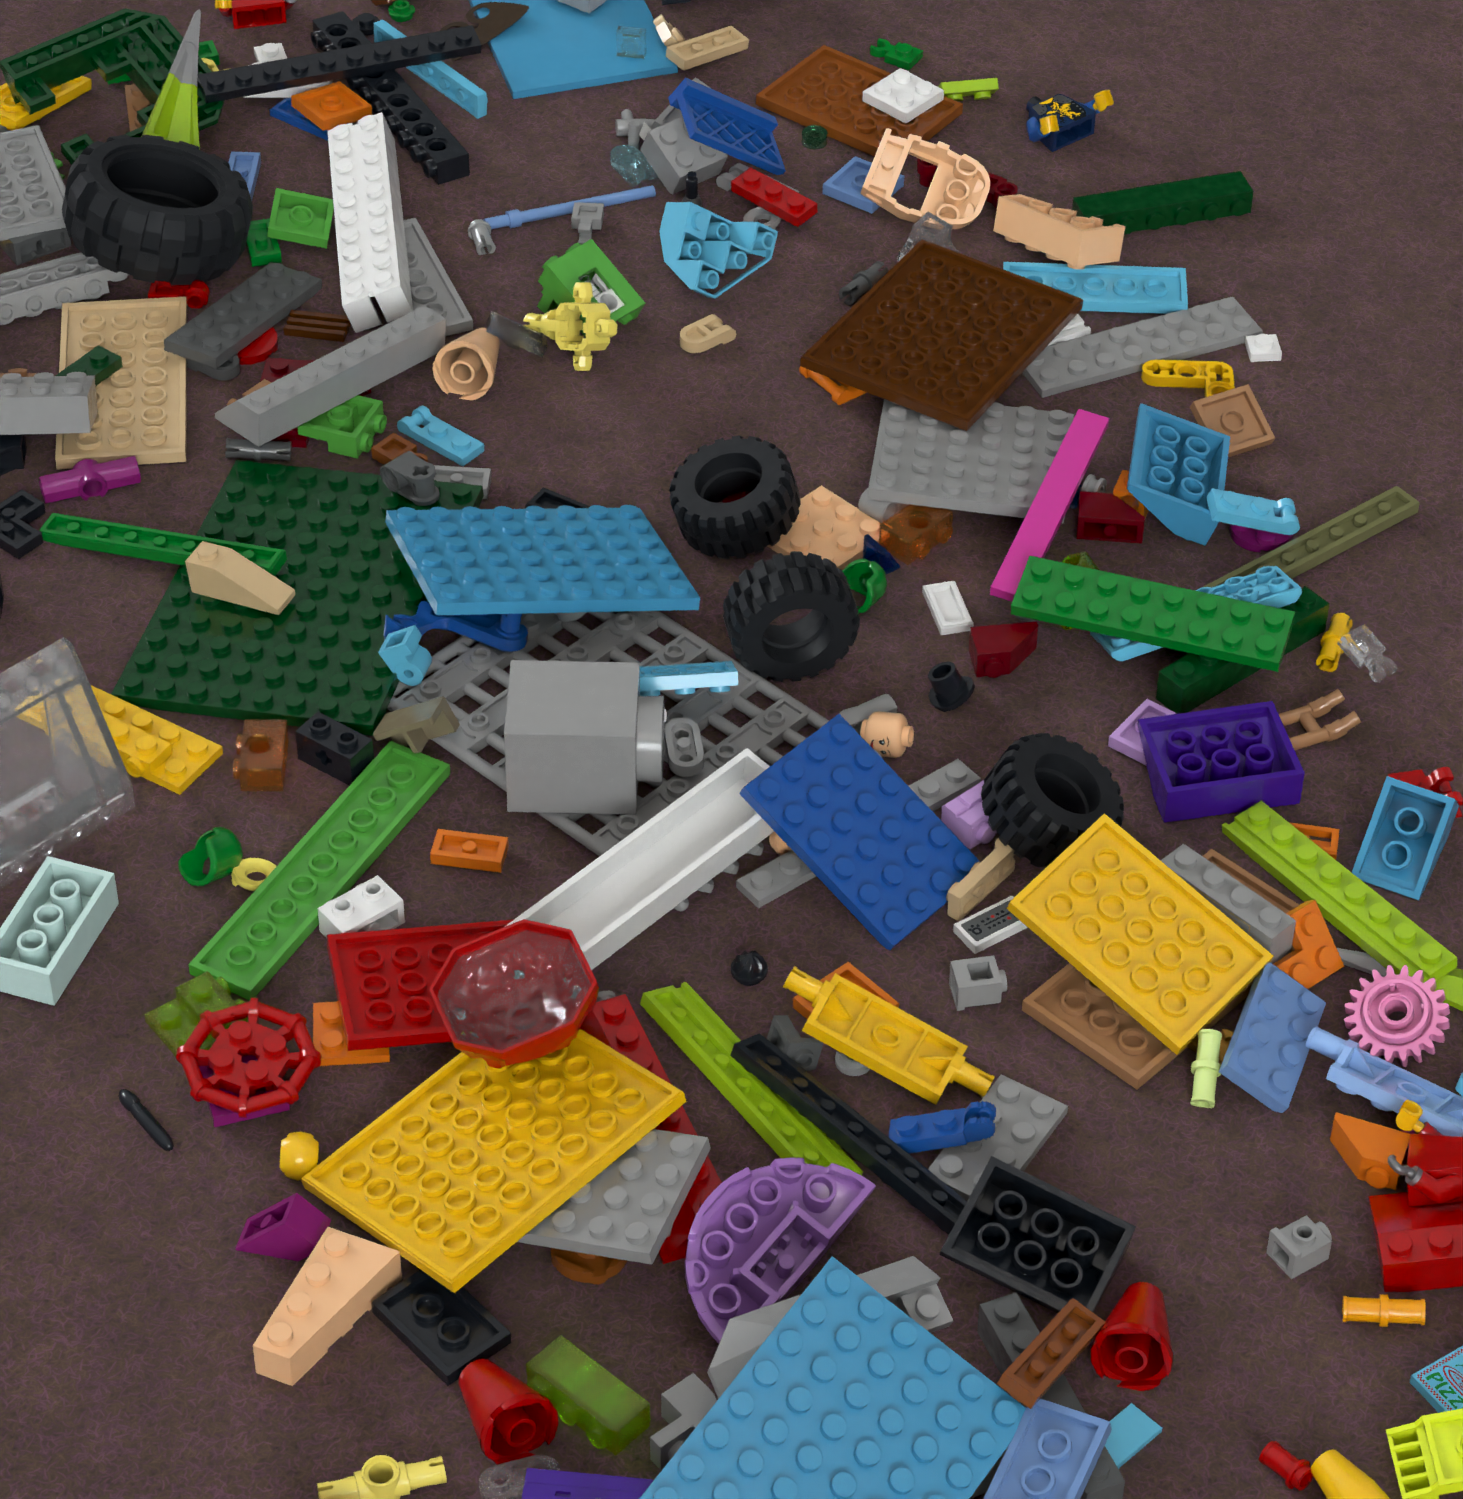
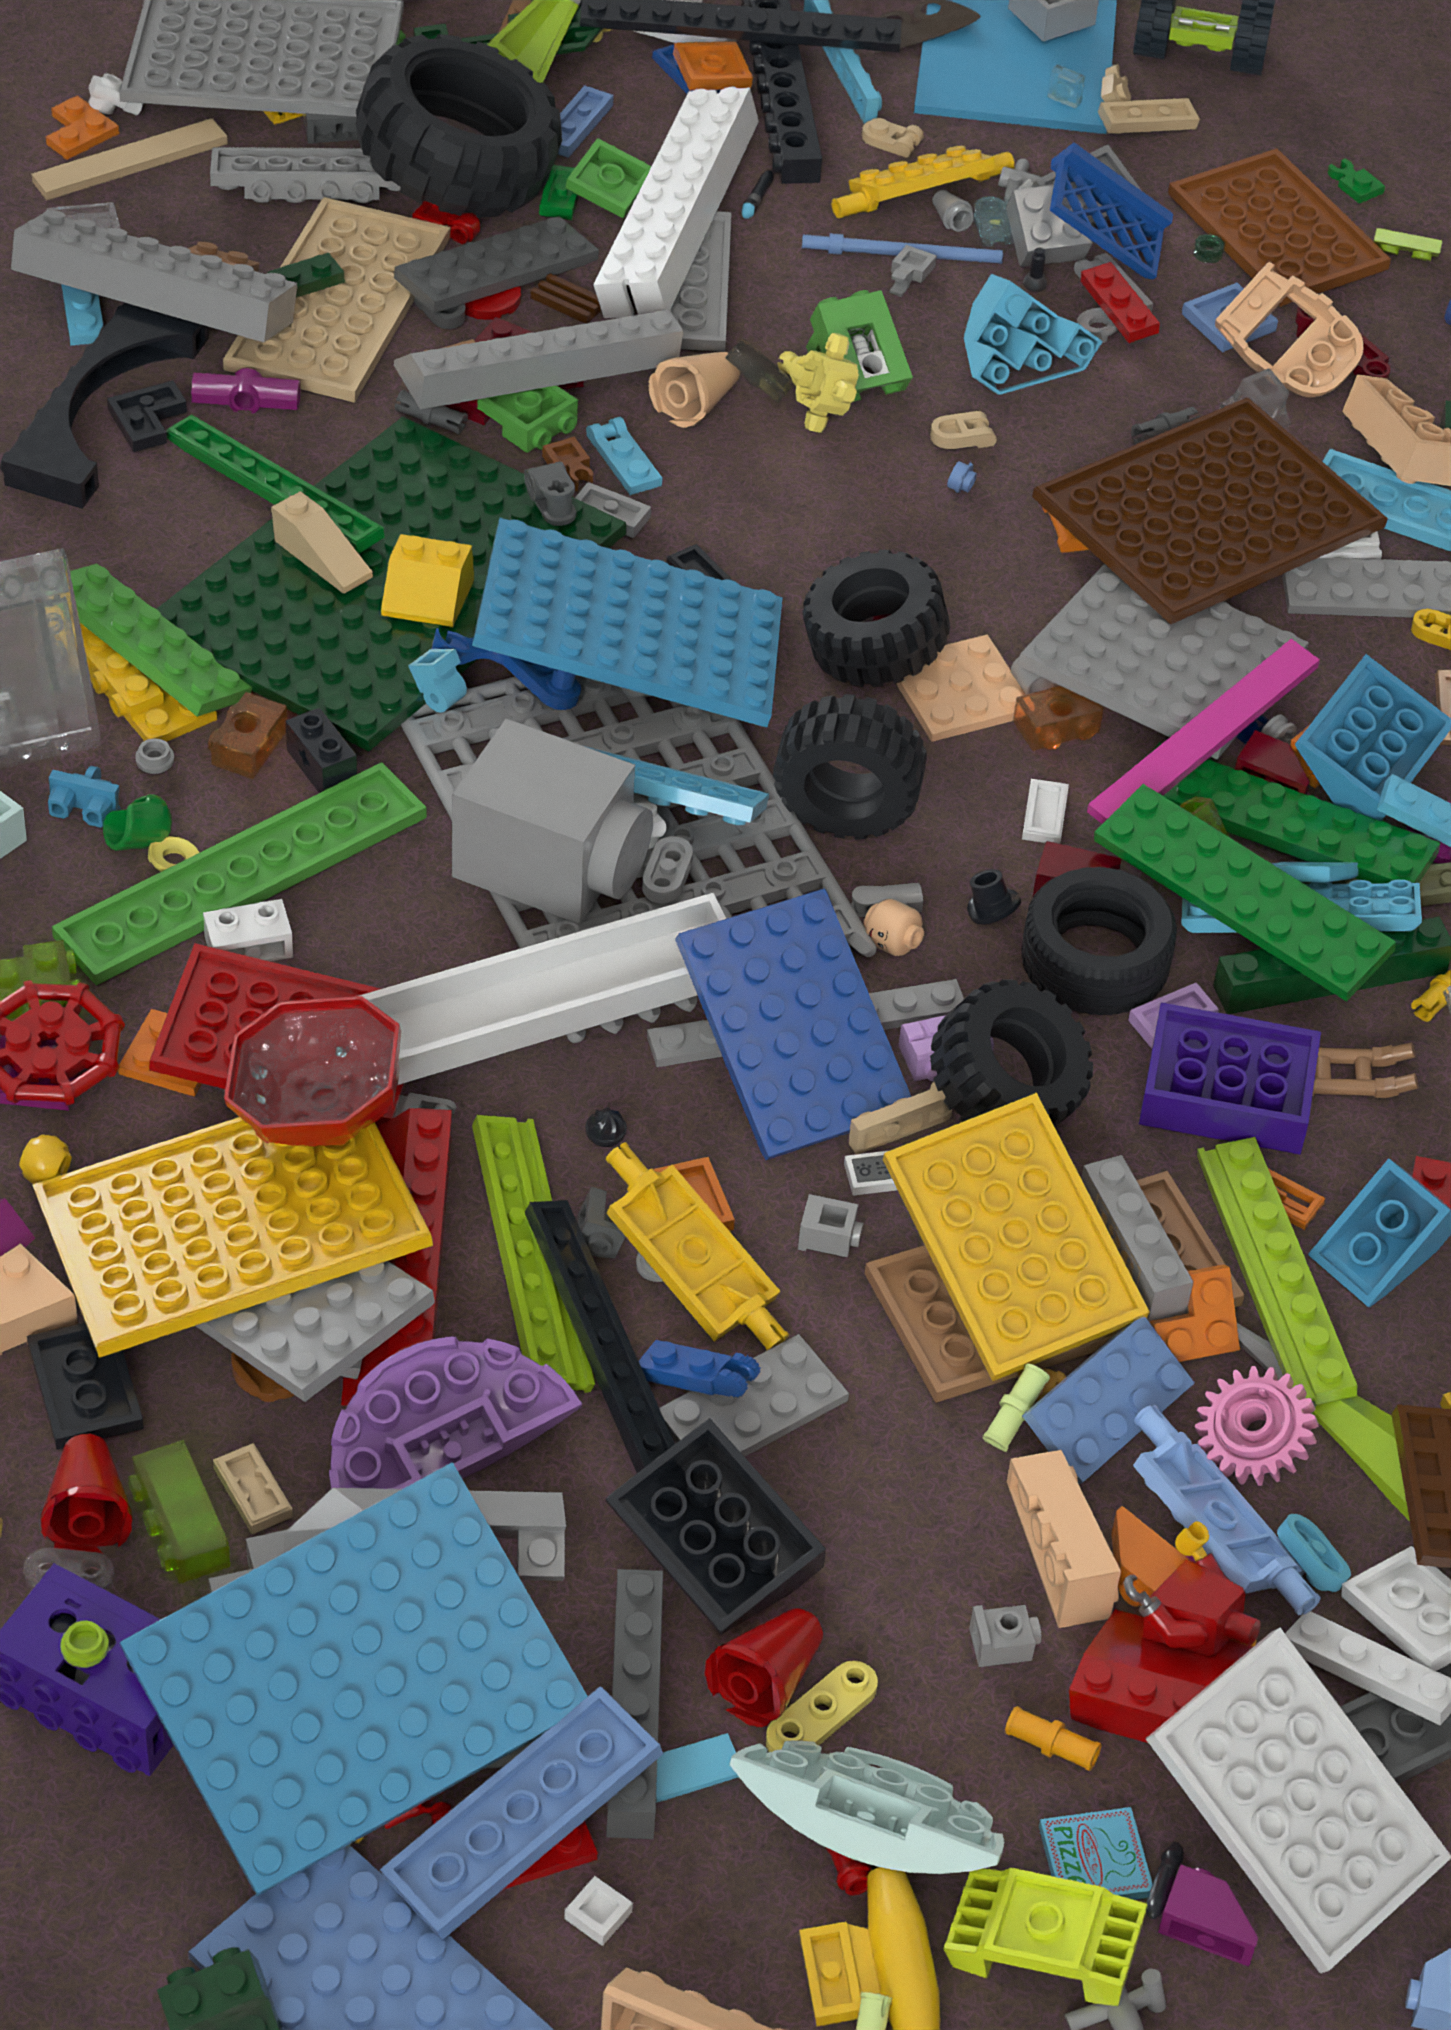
camera: 20 degrees right, 5 degrees up
(150, 847) = (85, 792): none -> dark azure hips
(161, 713) = (153, 643): none -> bright green plate
(190, 799) = (154, 756): none -> light grey plate
(351, 580) = (427, 580): none -> yellow slope
(418, 724) = (413, 754): dark tan panel -> none
(424, 198) = (750, 205): none -> black piece
(469, 850) = (396, 904): orange plate -> none
(480, 233) = (790, 249): light grey pin -> none
(508, 122) = (883, 135): none -> tan plate
(552, 145) = (909, 178): none -> yellow plate
(594, 165) = (953, 211): none -> light grey cone
(634, 1355) = (252, 1488): none -> tan plate
(727, 370) = (962, 477): none -> medium blue plate
(867, 579) = (968, 746): green hair -> none
(875, 552) = (1003, 732): clear blue slope -> none
(903, 95) = (1327, 230): white plate -> none
(1050, 1353) = (648, 1649): dark orange plate -> none
(1056, 657) = (1099, 899): none -> black tyre
(1161, 552) = (1307, 825): none -> green plate
(1191, 1369) = (834, 1691): none -> light yellow plate
(1198, 580) = (1319, 870): none -> medium azure tile
(1291, 1414) = (868, 1813): none -> light aqua brick
(1305, 1154) = (1064, 1539): none -> light nougat wedge

